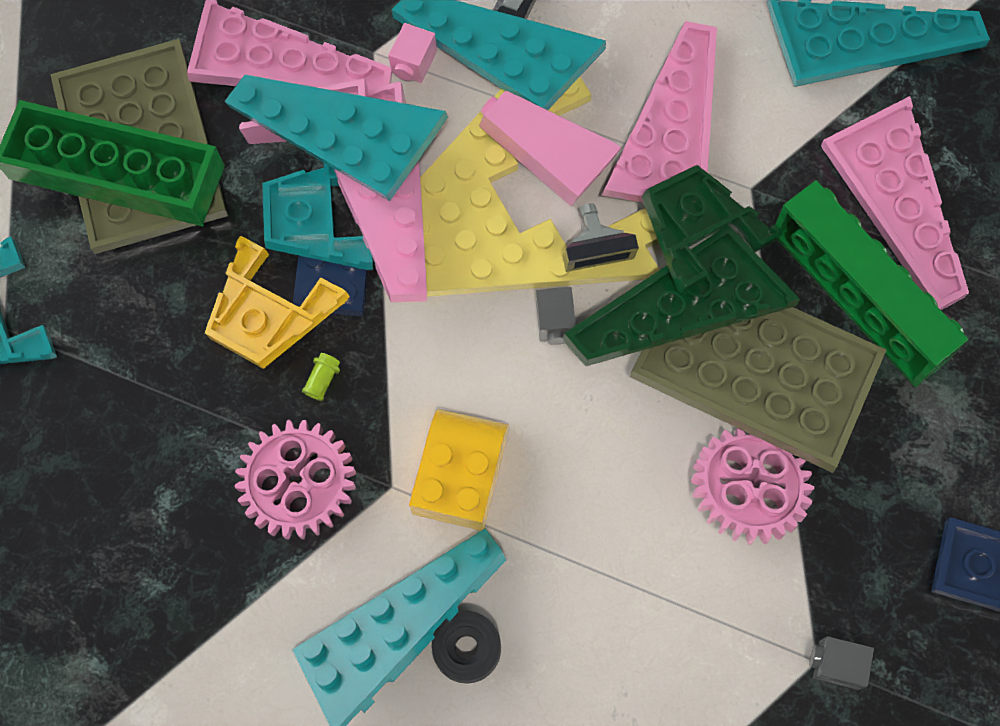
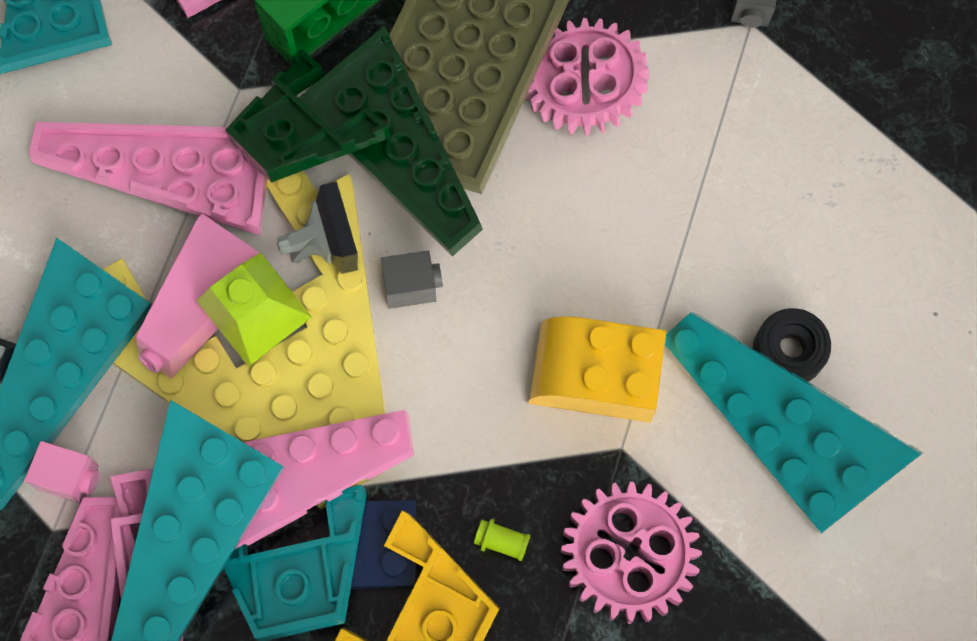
camera: 100 degrees left, 0 degrees up
(529, 183) = (253, 308): none -> lime slope

